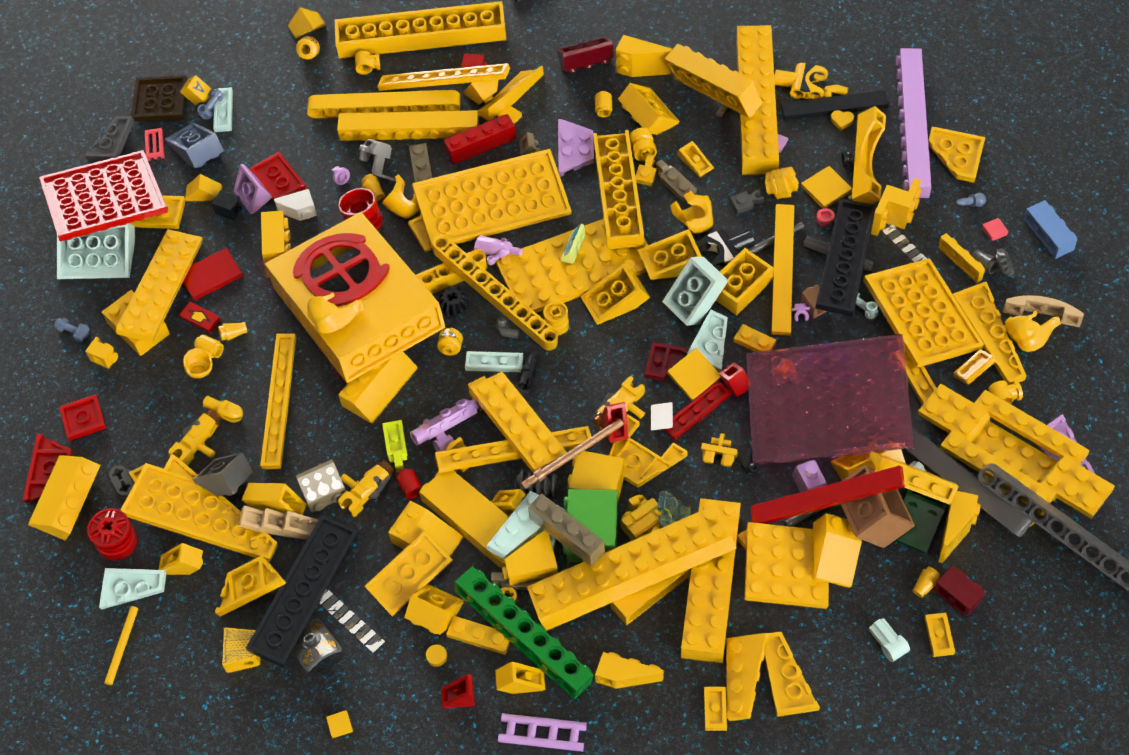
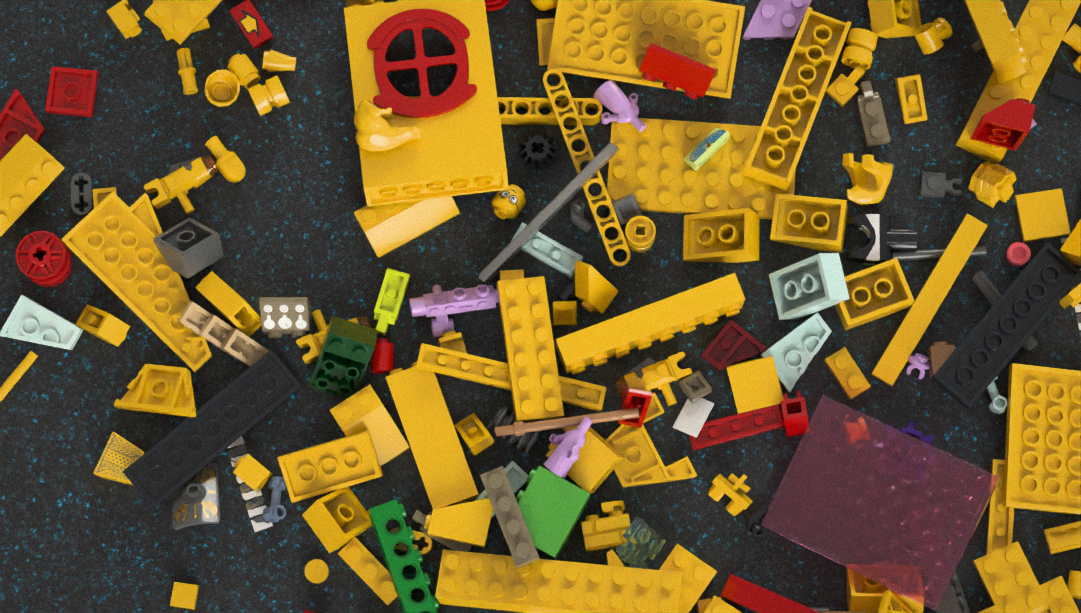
camera: 25 degrees right, 20 degrees up
(165, 367) = (187, 71): none -> yellow axle
(237, 351) = (268, 95): none -> yellow wheel
(278, 402) = (289, 179): yellow plate -> none
(350, 607) = (252, 472): none -> yellow brick
(380, 493) = (343, 357): none -> dark green slope
(382, 625) = (275, 511): none -> sand blue bar
(482, 329) = (547, 213): none -> tile
(515, 530) = (465, 477): light aqua wing -> none
(524, 203) = (676, 71): none -> red slope
(530, 392) = (564, 313): none -> yellow tile
(537, 304) = (626, 208): none -> dark grey plate
(541, 364) = (592, 288): none -> yellow slope
(583, 468) = (568, 448): none -> lavender piece
(596, 368) = (650, 323): none -> yellow brick
(652, 397) = (695, 386): none -> dark tan tile
(687, 115) = (931, 35): none -> yellow piece
(769, 129) = (1006, 124): none -> red slope
(808, 476) = (807, 583): lavender torso -> none

